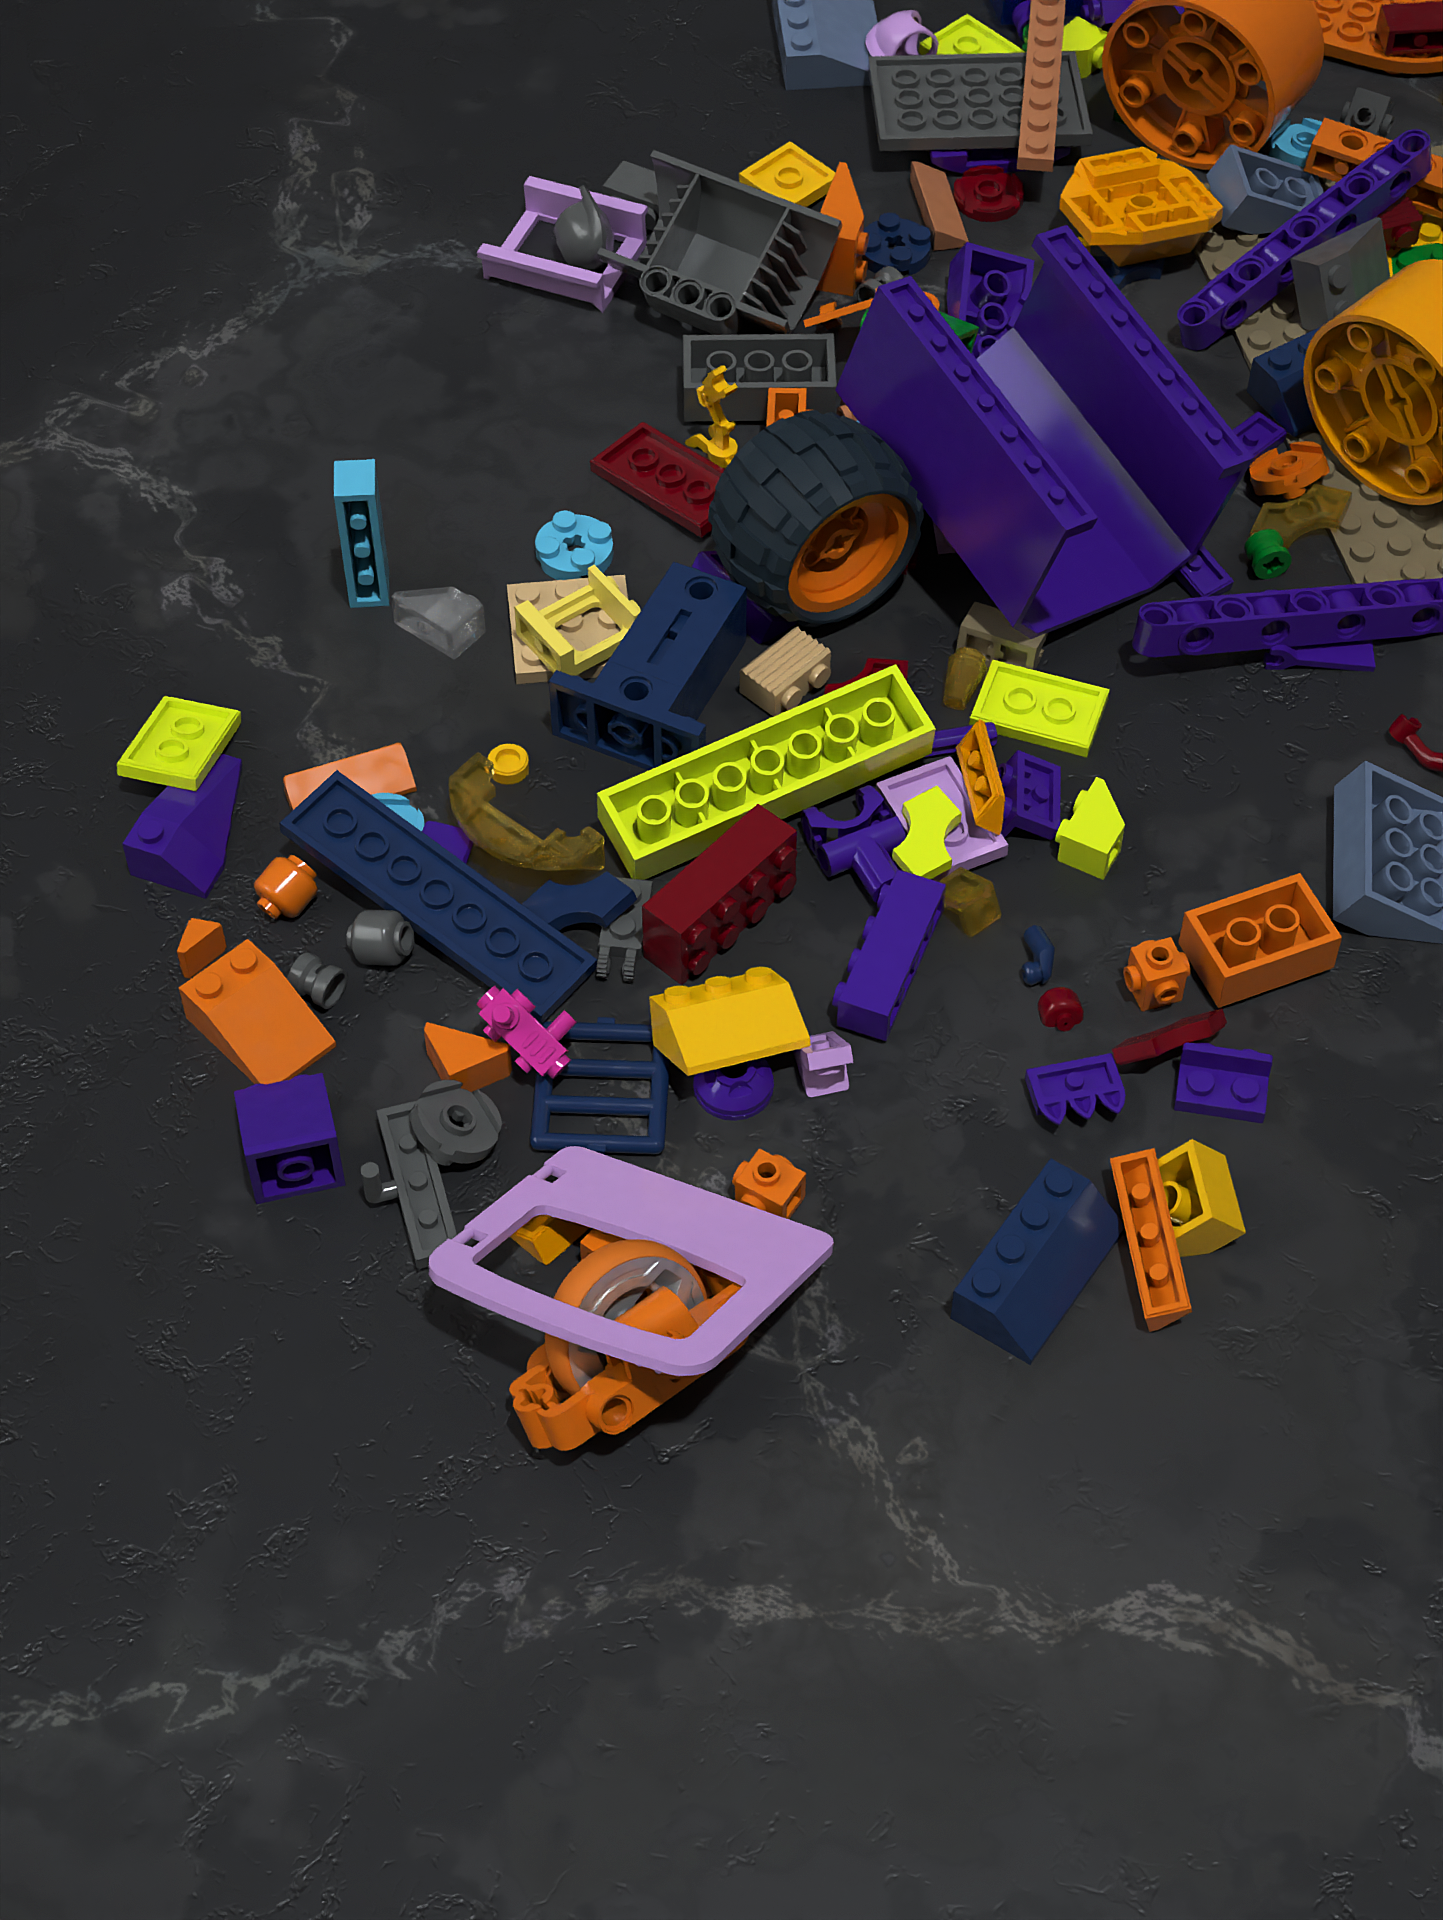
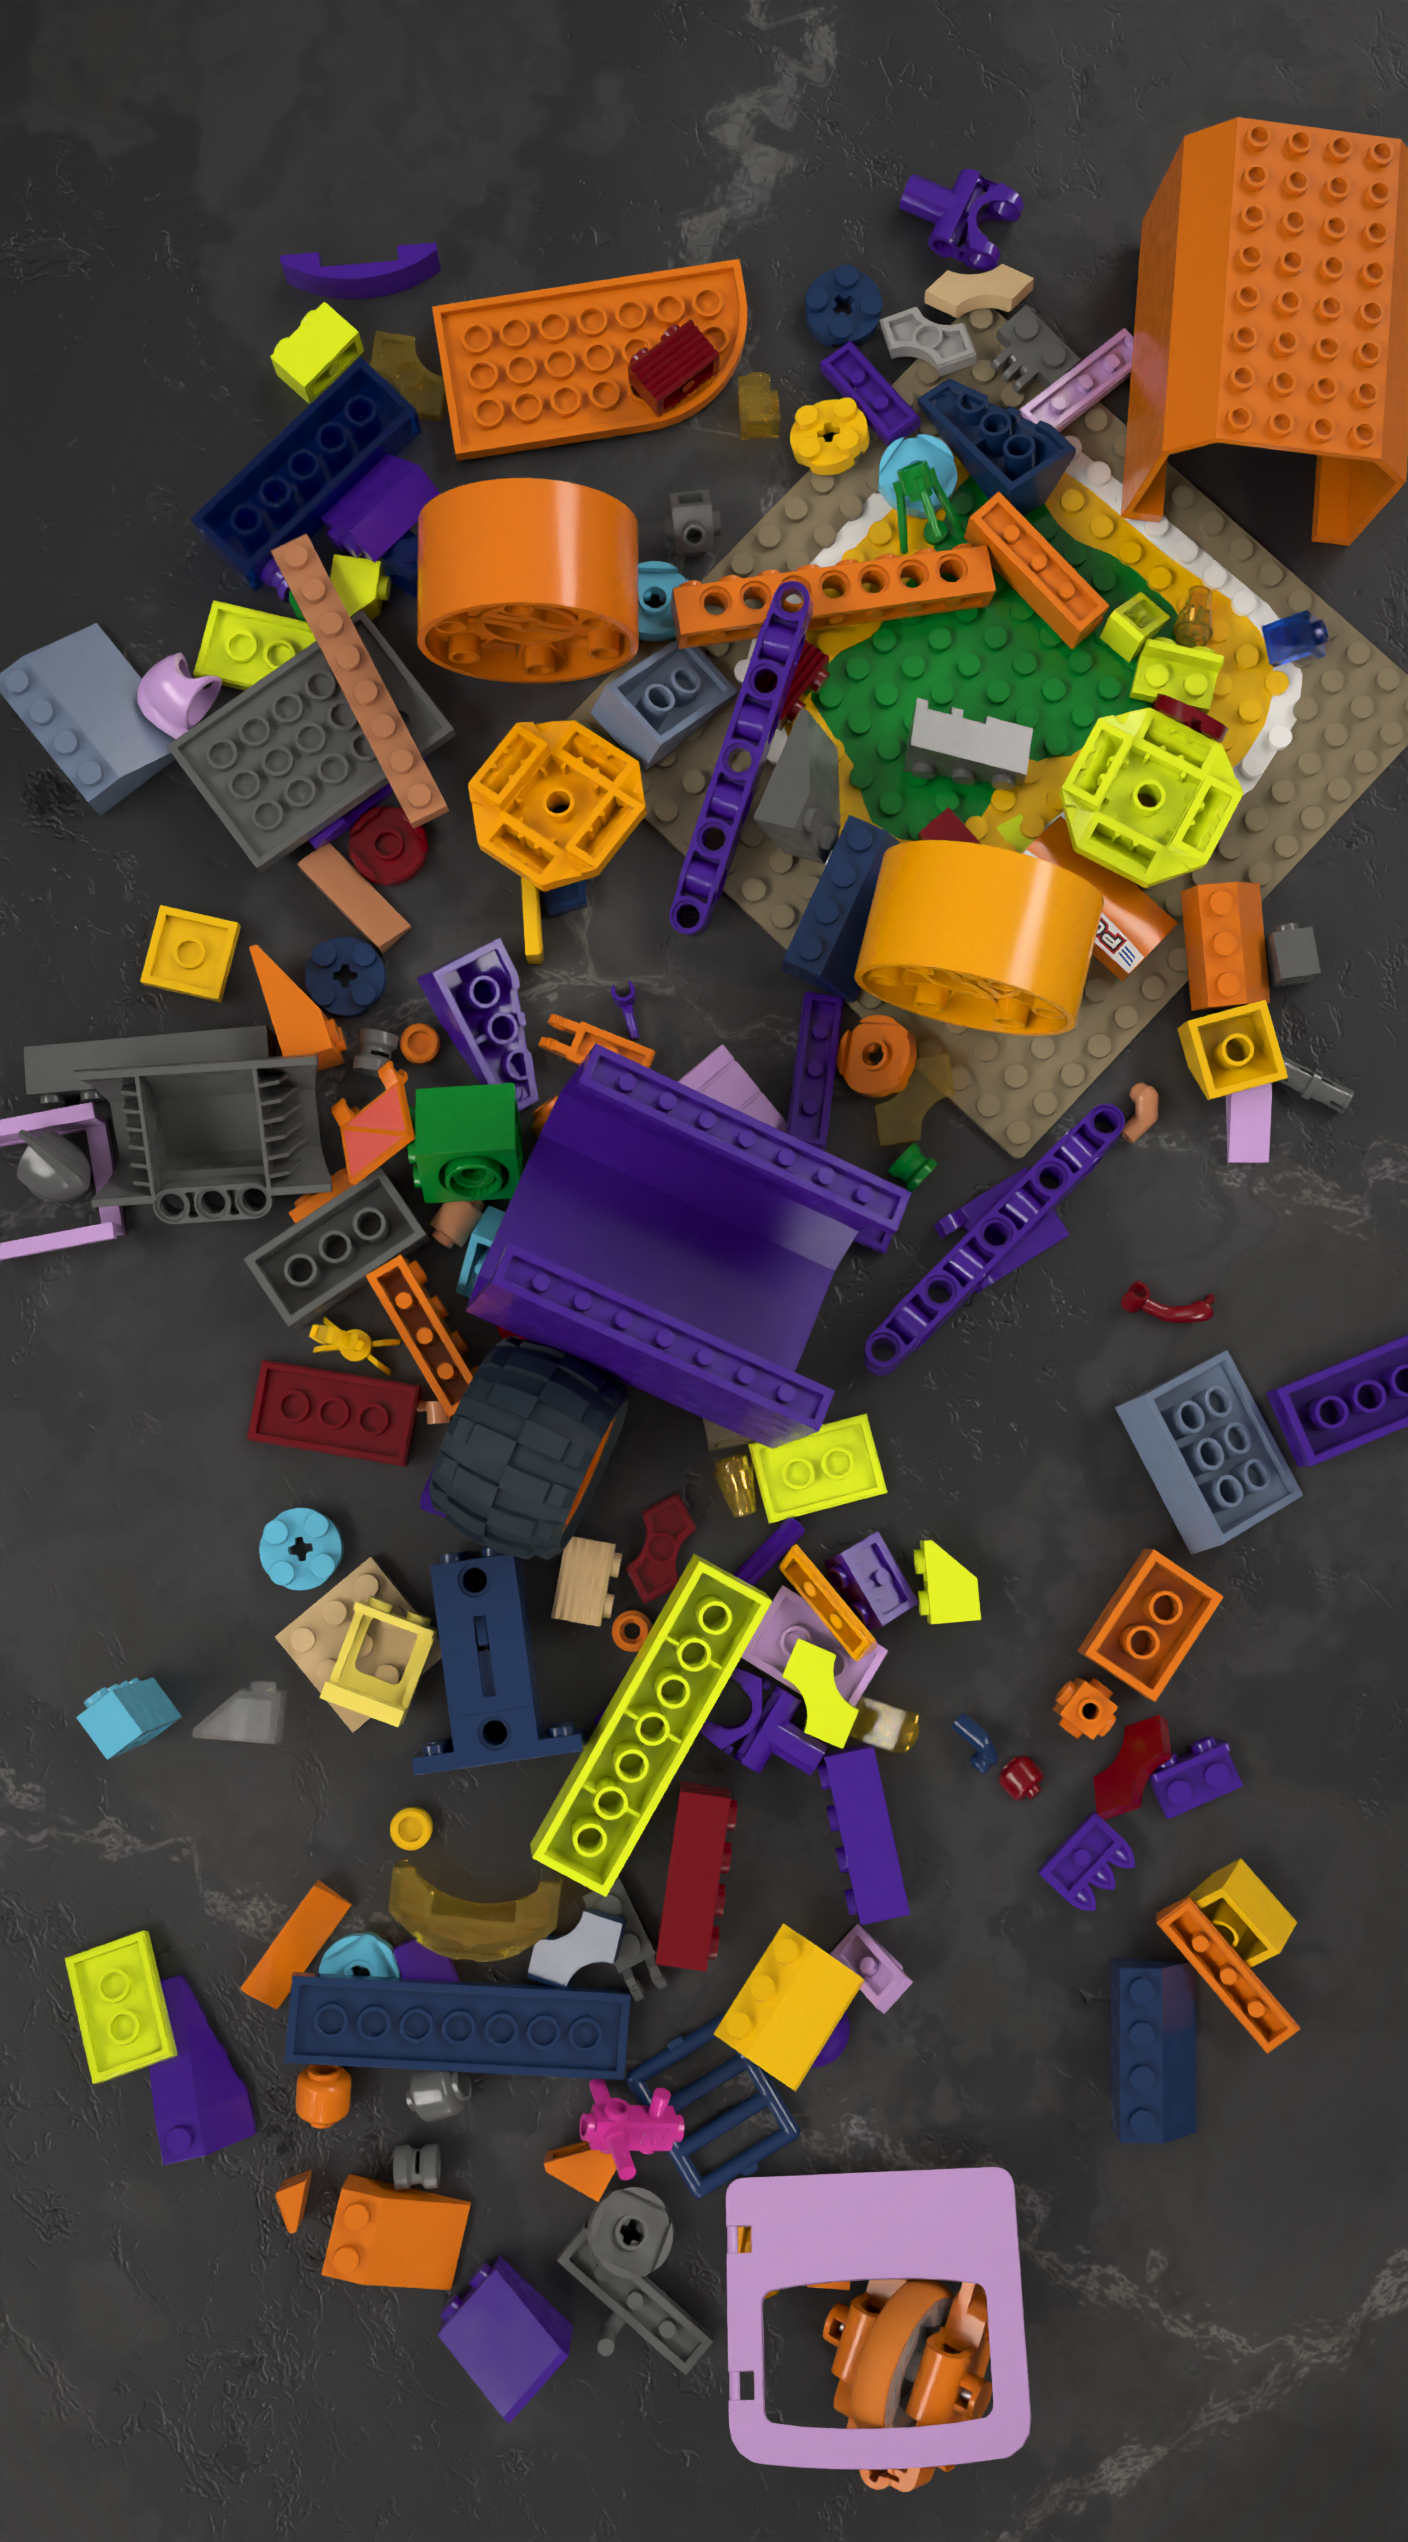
camera: 35 degrees left, 30 degrees up
(770, 1184) = (926, 2130): orange brick -> none

